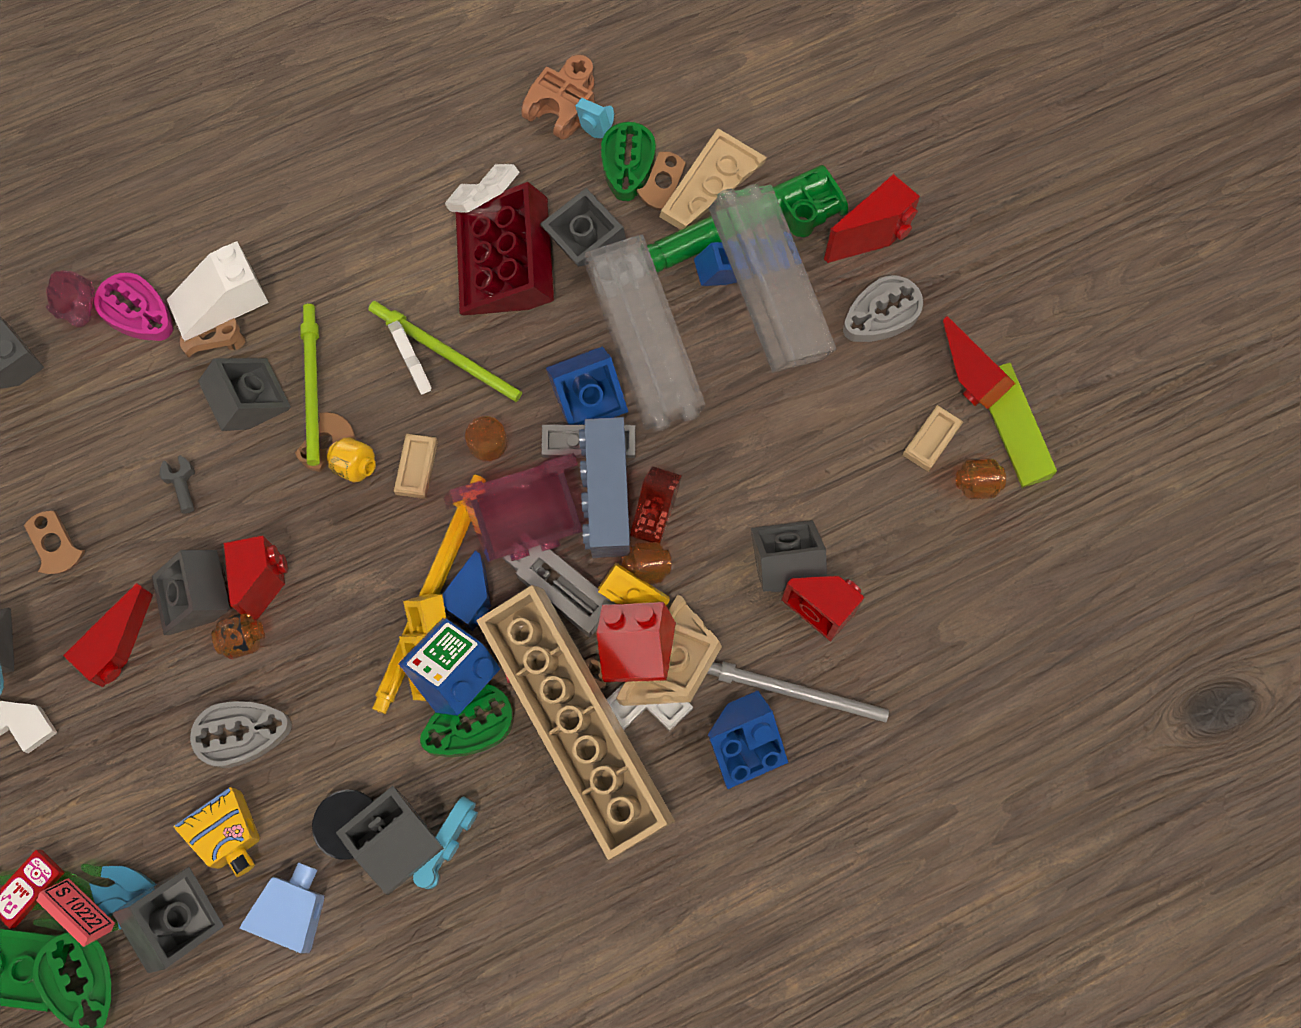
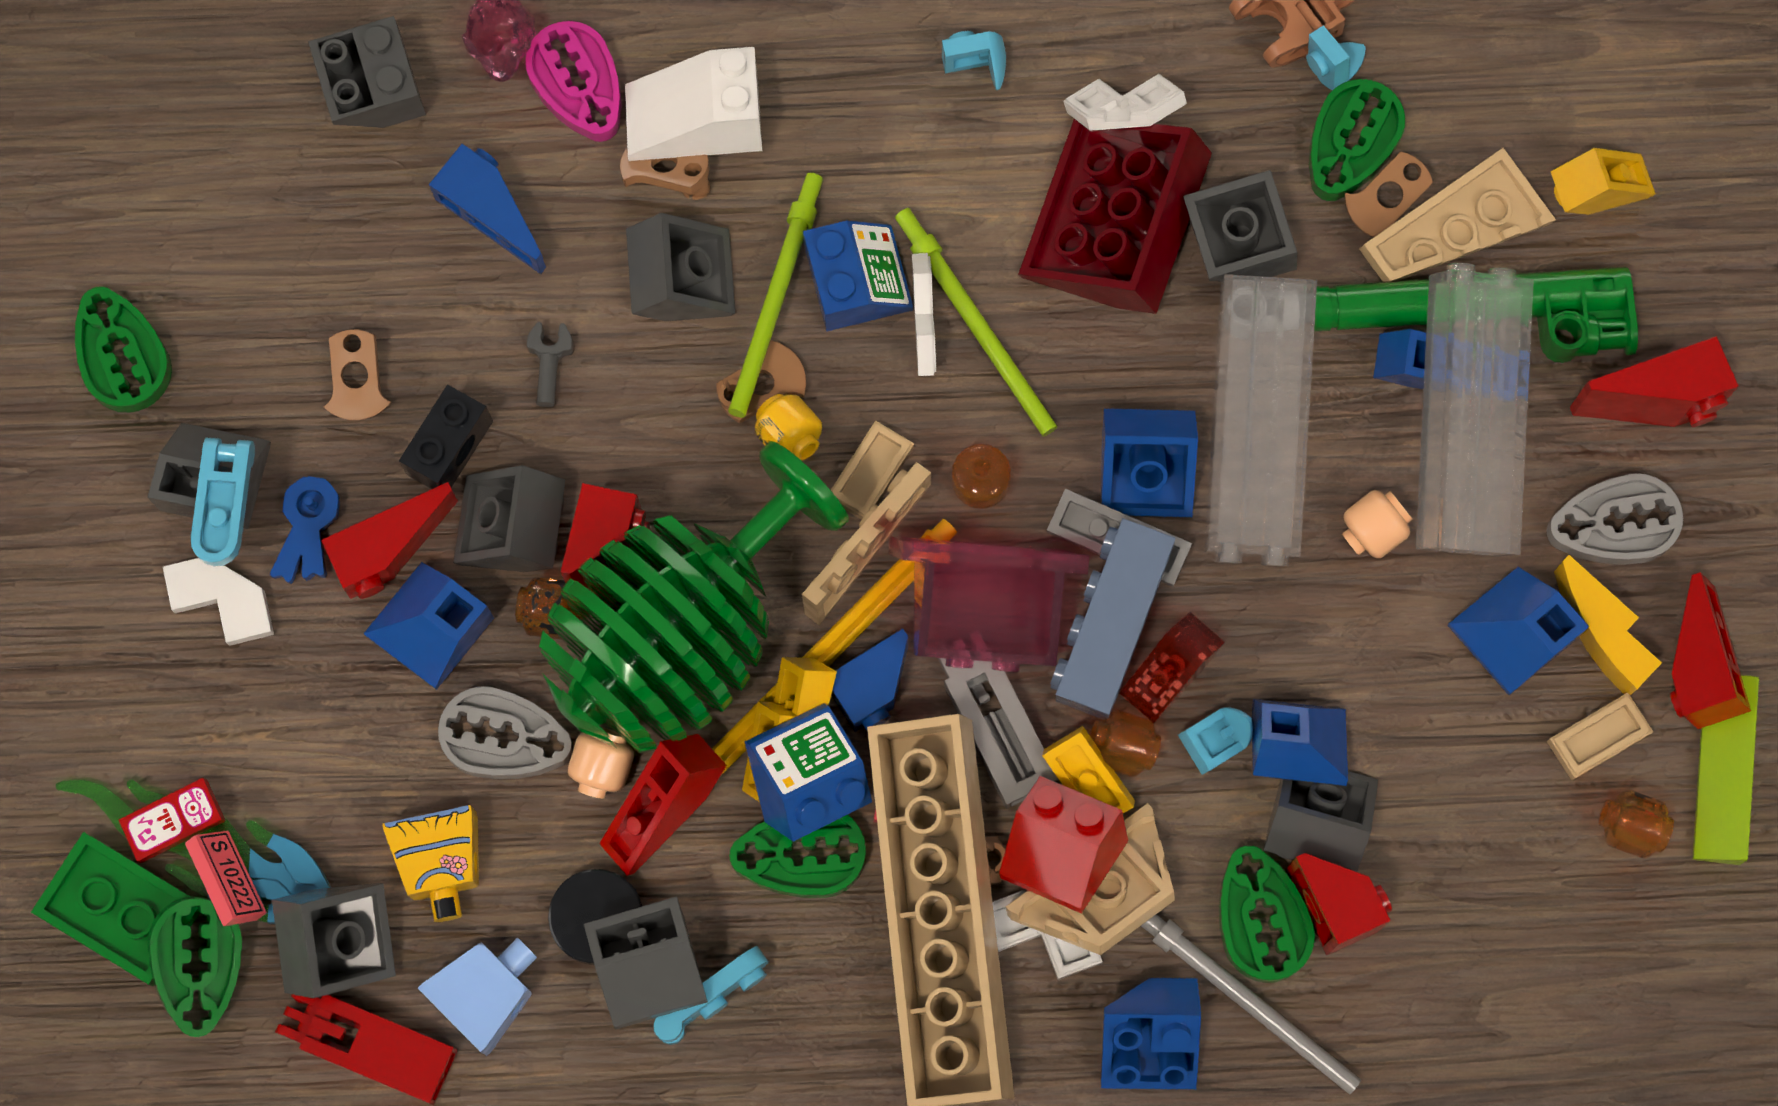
camera: 25 degrees right, 5 degrees up
(52, 640) = (310, 507): none -> blue piece
(91, 398) = (477, 194): none -> blue slope
(127, 556) = (446, 439): none -> black brick
(161, 680) = (430, 624): none -> blue slope
(230, 983) = (380, 1048): none -> red hinge
(310, 721) = (600, 765): none -> light nougat head
(316, 603) = (673, 616): none -> green plant
(356, 351) = (856, 272): none -> blue slope
(360, 725) = (662, 799): none -> red slope
(378, 196) = (972, 50): none -> medium azure plate
(428, 511) = (860, 549): none -> tan wing
(703, 535) = (1217, 737): none -> medium azure plate
(742, 368) = (1376, 524): none -> light nougat head
(754, 515) = (1299, 742): none -> blue slope
(782, 126) = (1601, 181): none -> yellow slope
(797, 627) = (1289, 917): none -> green piece
(855, 393) = (1518, 628): none -> blue slope
(904, 372) = (1607, 638): none -> yellow slope

